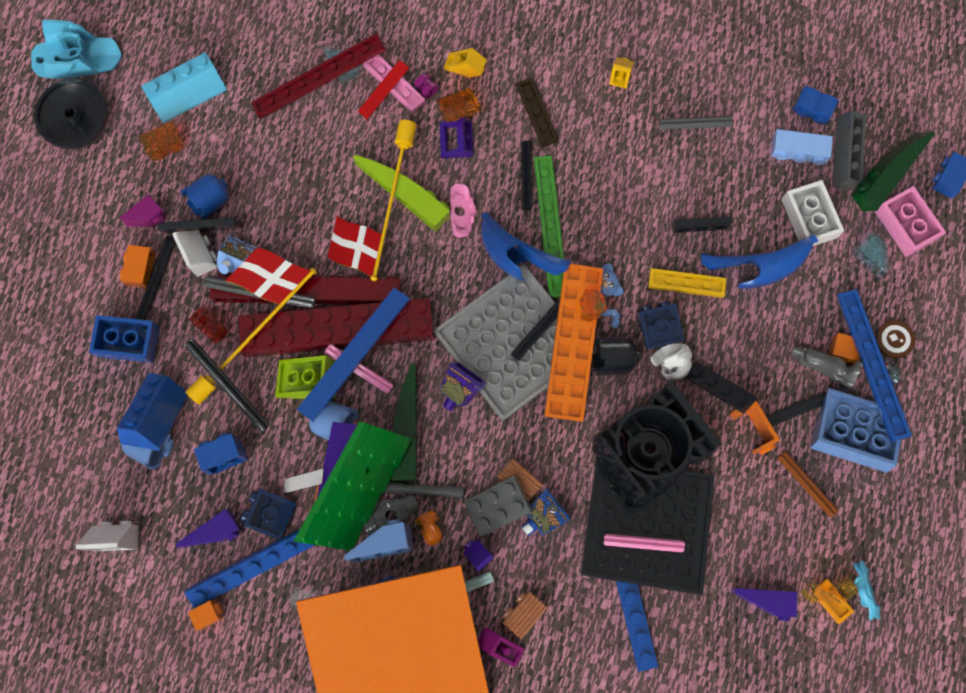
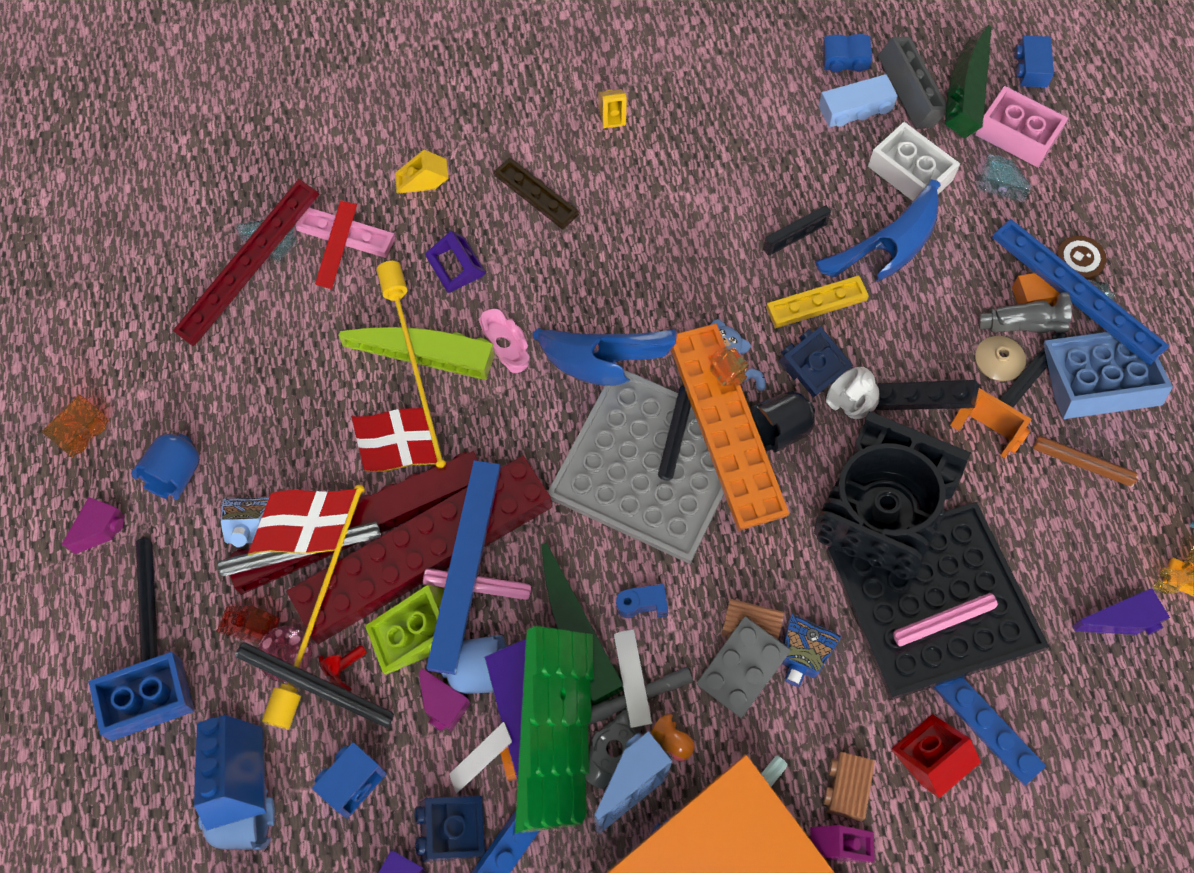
camera: 30 degrees left, 10 degrees down
(137, 266) = (114, 595): orange brick -> none
(184, 87) = (74, 350): medium azure slope -> none
(196, 251) = (188, 539): white slope -> none
(201, 225) = (178, 504): black tile -> none
(228, 346) = (291, 640): none -> clear pink dish
(247, 378) = (335, 664): none -> red plant
(299, 433) = (441, 702): none -> magenta slope
(425, 84) = (387, 218): magenta wheel -> none
(425, 477) = (632, 678): none -> white sticker
(451, 428) = (641, 600): none -> blue leg
(458, 105) = (439, 221): clear orange plate -> none
(460, 386) = (617, 544): torso -> none
(477, 554) = (752, 740): dark purple slope -> none
(526, 176) = (562, 268): black axle -> none
(549, 217) = (617, 304): bright green tile -> none
(590, 624) = (937, 755): none -> red slope
(695, 122) = (725, 127): dark grey axle -> none
(785, 388) = (996, 366): none -> tan dish

